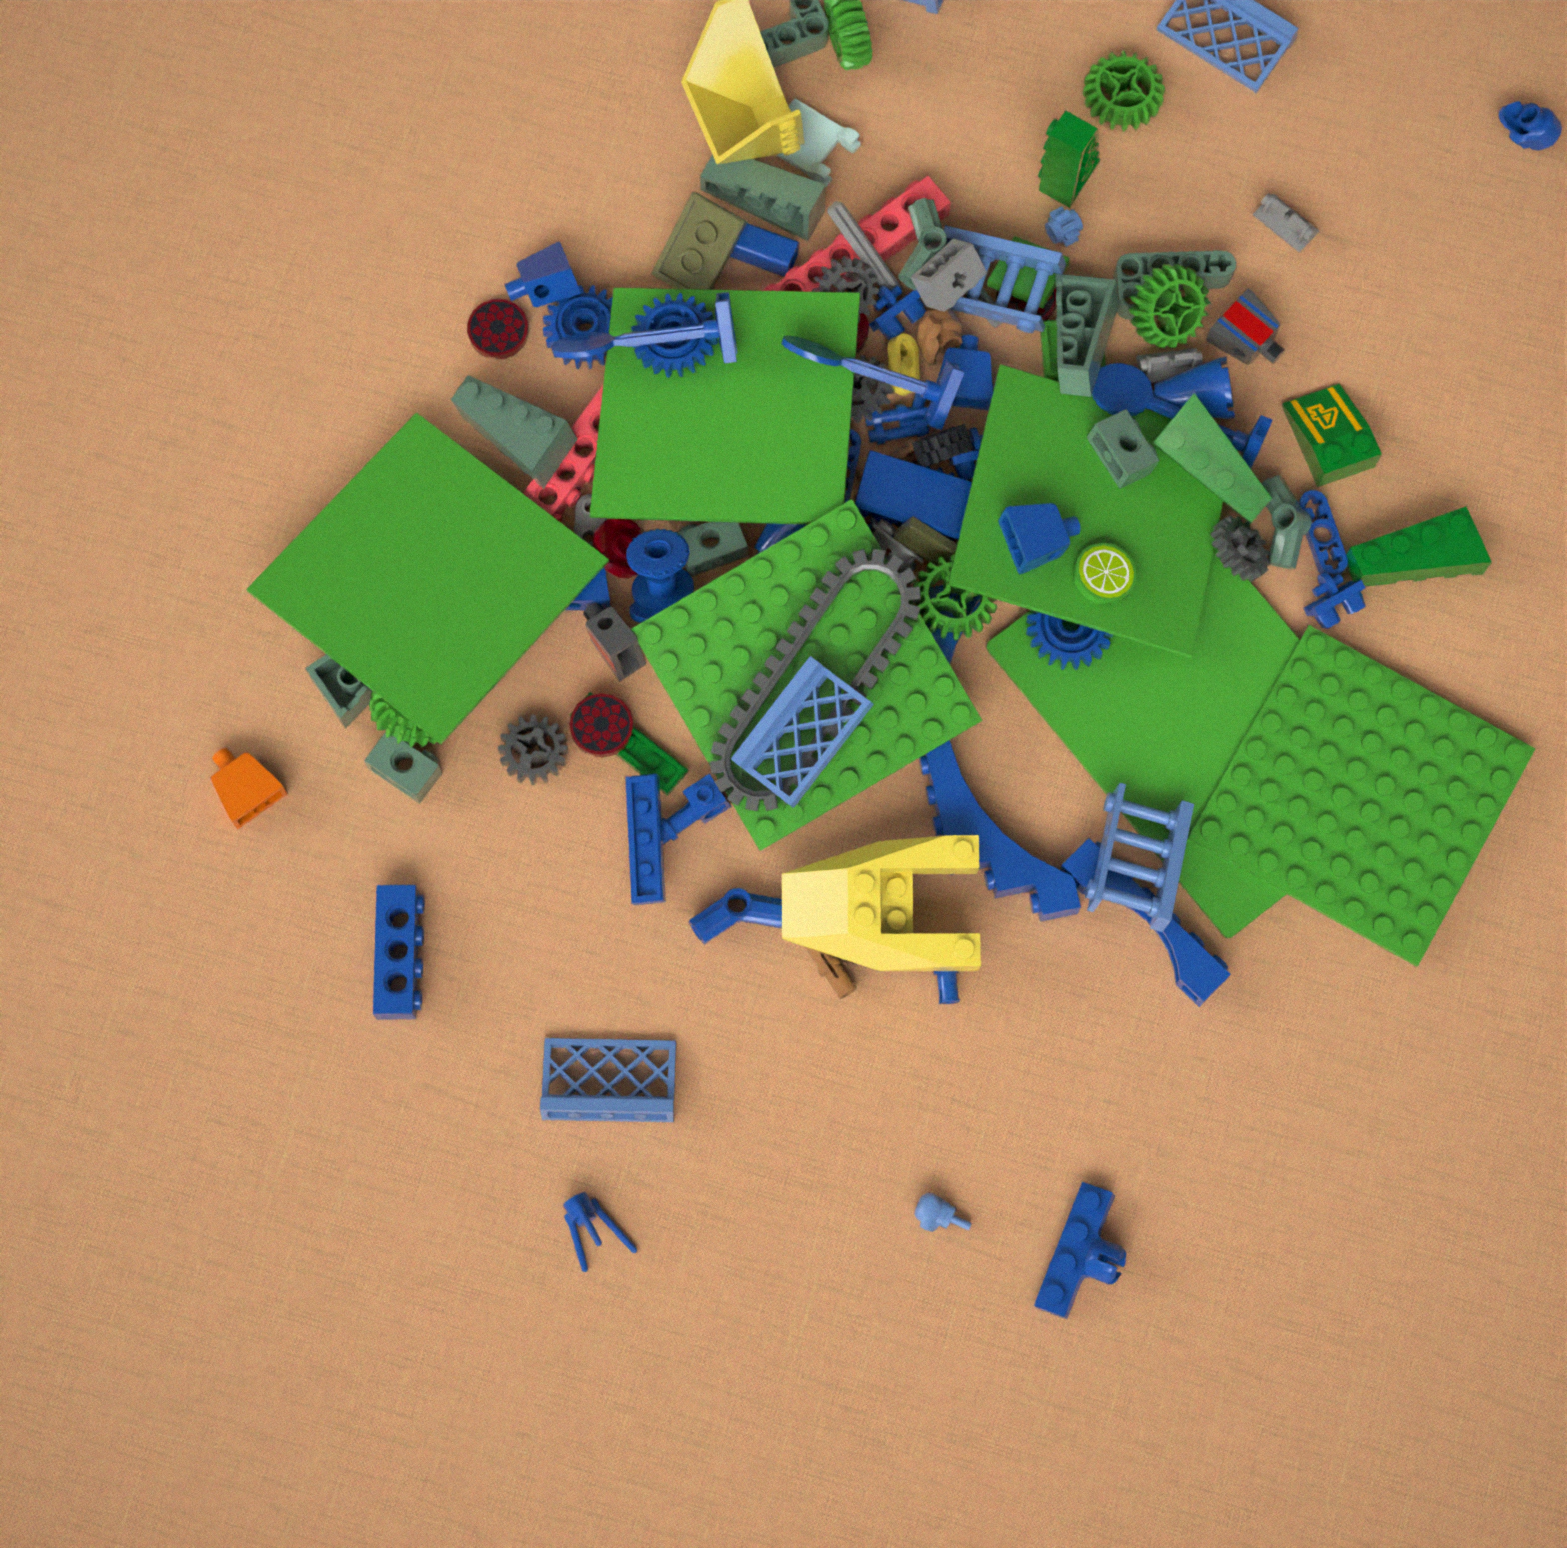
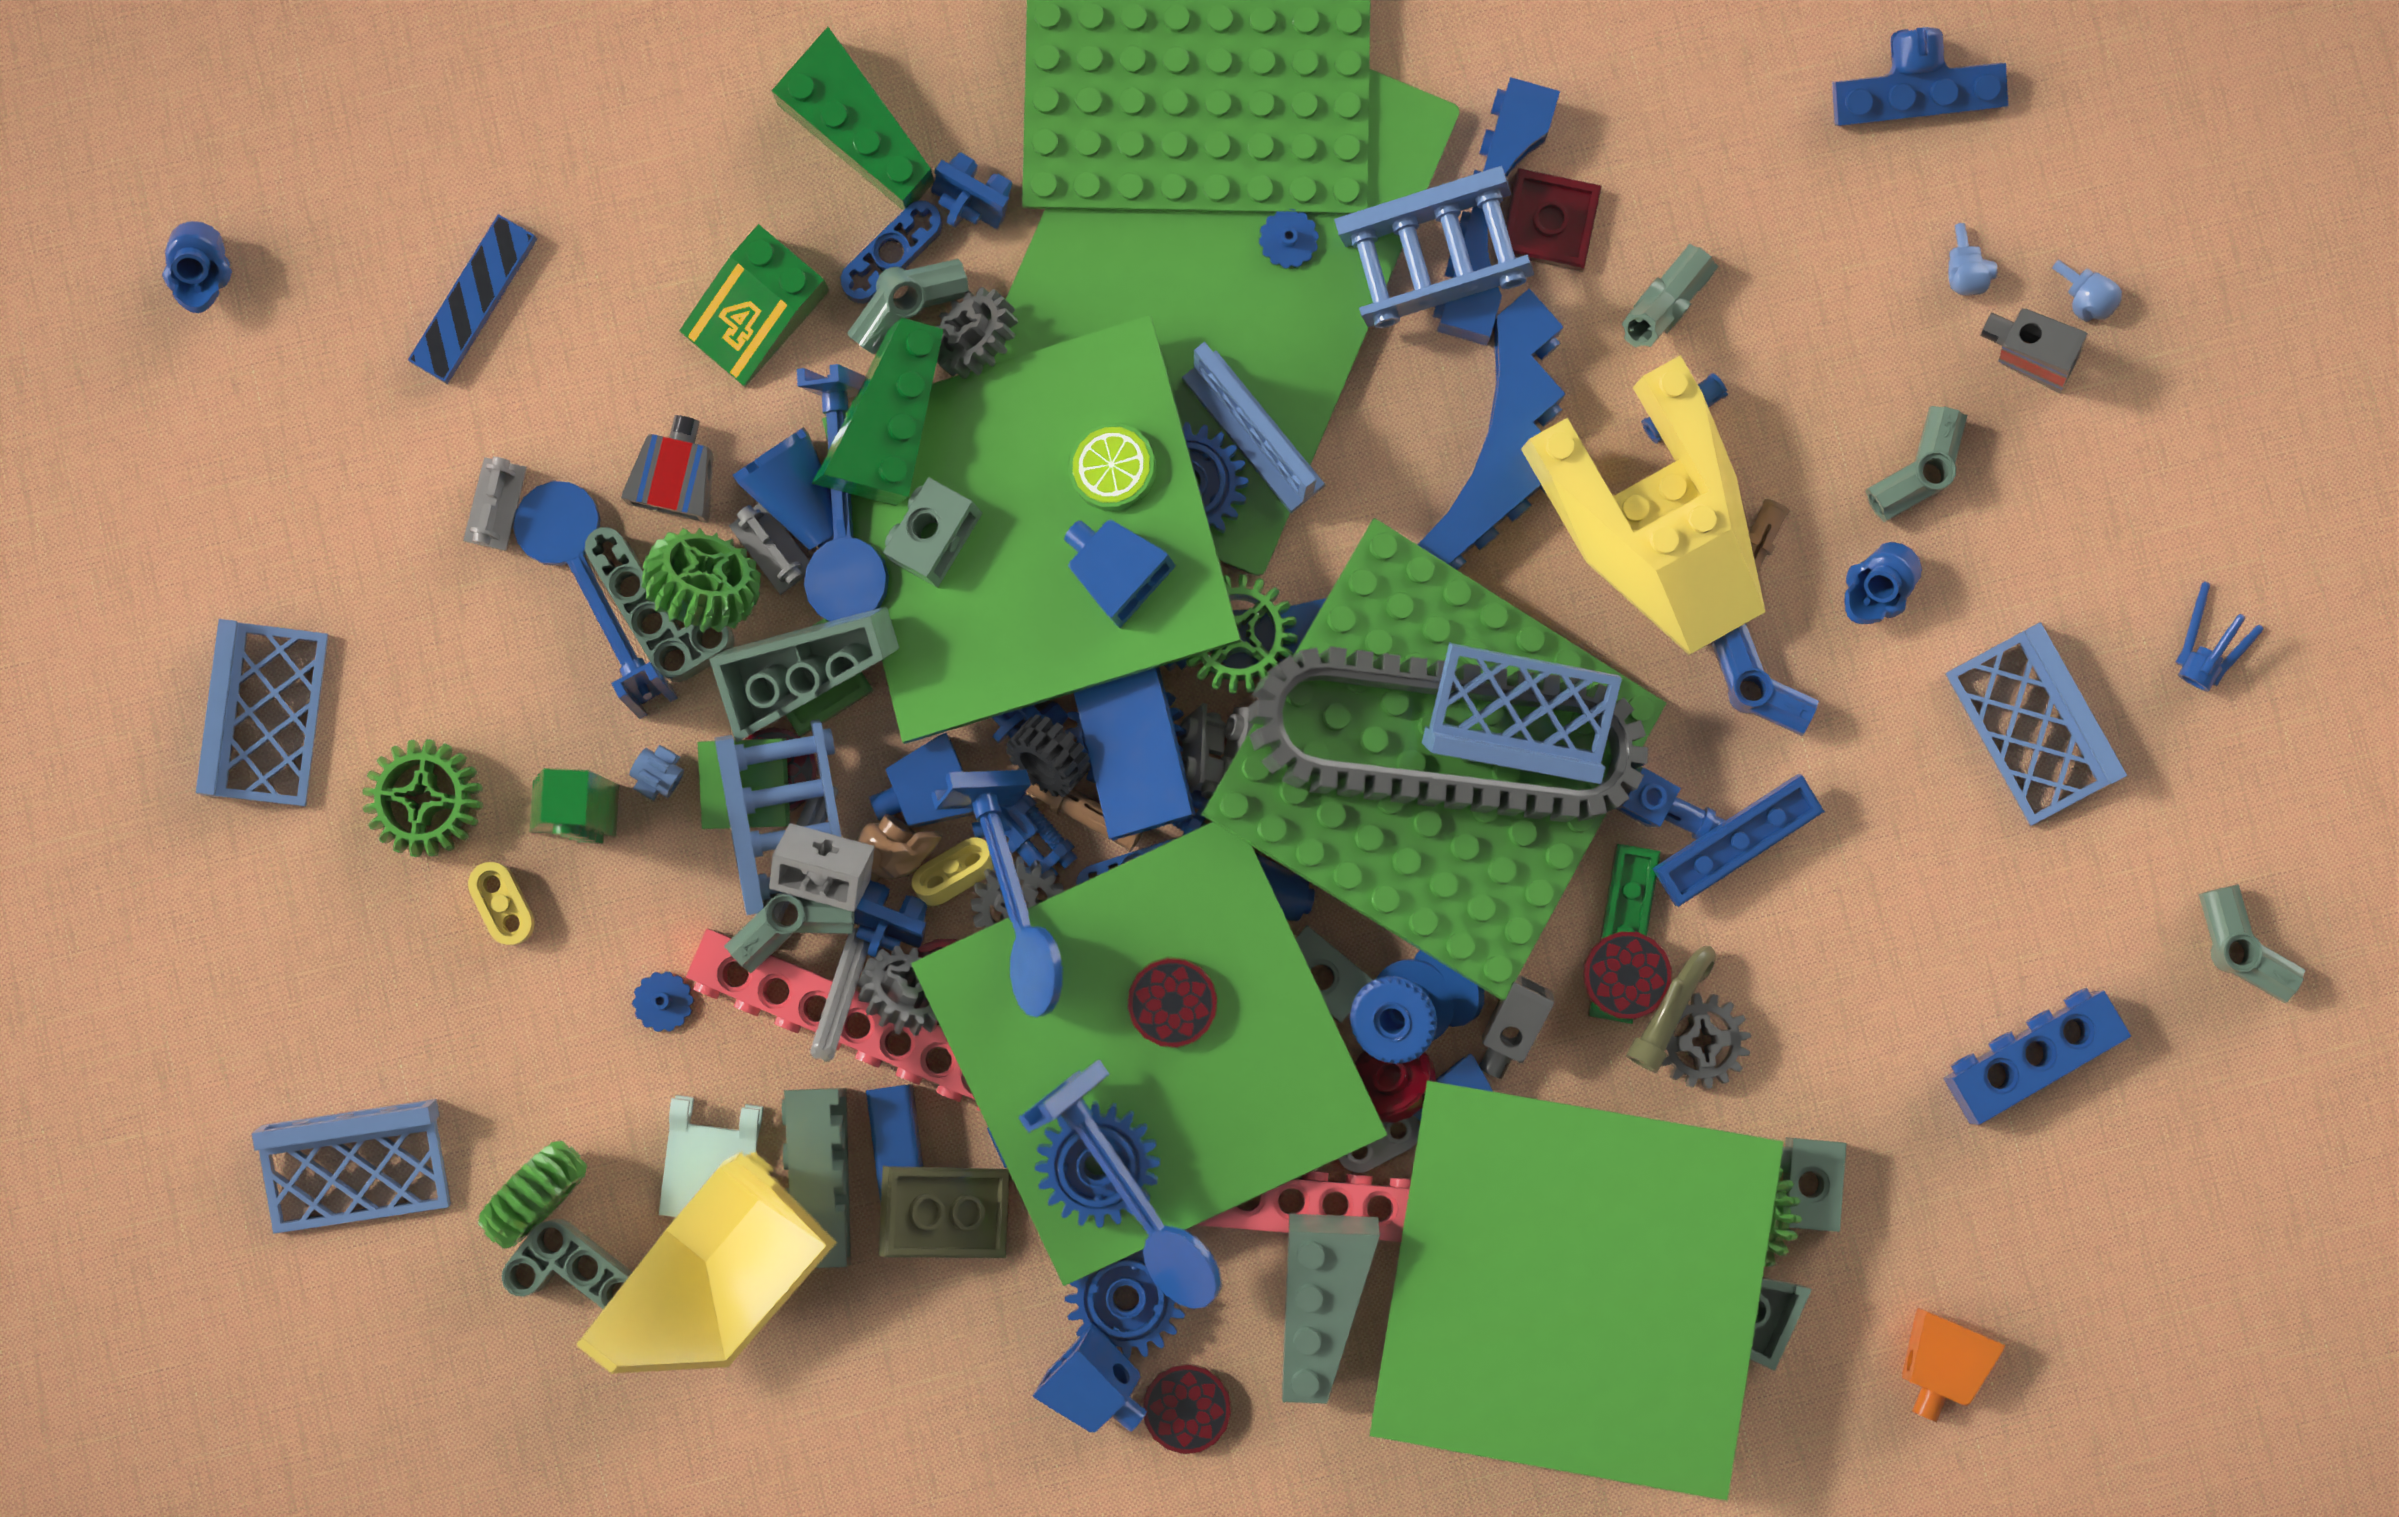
camera: 120 degrees left, 10 degrees up
(404, 1126) = (2260, 966): none -> sand green piece
(547, 708) = (1650, 1048): none -> olive plant
(746, 427) = (1172, 1002): none -> tile
(757, 1027) = (1881, 583): none -> blue head
(812, 1084) = (1937, 447): none -> sand green piece
(848, 1227) = (2052, 347): none -> dark grey torso
(873, 1287) = (2092, 293): none -> medium blue piece
(921, 163) = (662, 1001): none -> blue piece
(924, 541) = (1185, 706): olive tile -> none
(1024, 995) = (1668, 297): none -> sand green piece
(1033, 103) = (500, 905): none -> light yellow plate
(1084, 683) = (1251, 429): none -> medium blue fence
(1120, 957) = (1552, 218): none -> dark red tile
(1197, 779) = (1288, 238): none -> blue piece
(1253, 245) = (553, 530): none -> blue piece
(1425, 274) = (472, 299): none -> blue tile

